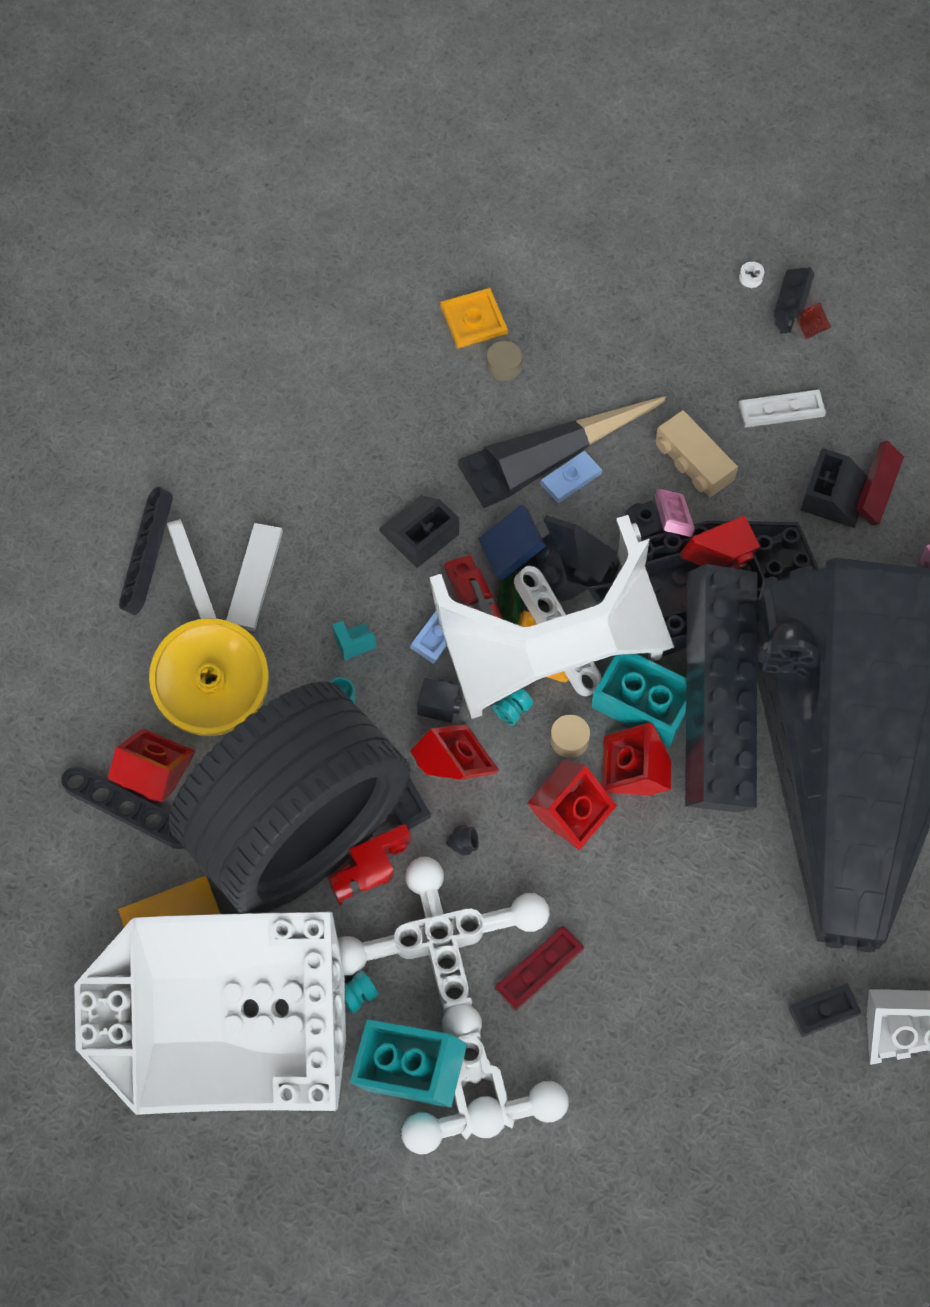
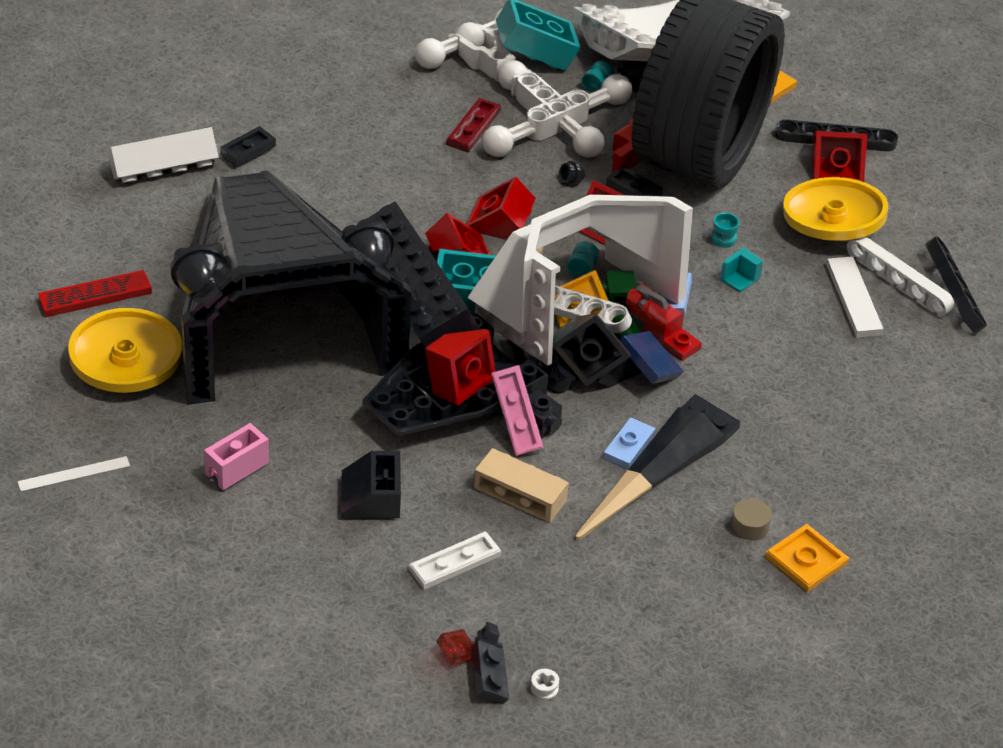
camera: 155 degrees right, 20 degrees down
(422, 529) = (738, 354): black slope -> none
(879, 483) = (330, 511): dark red tile -> none

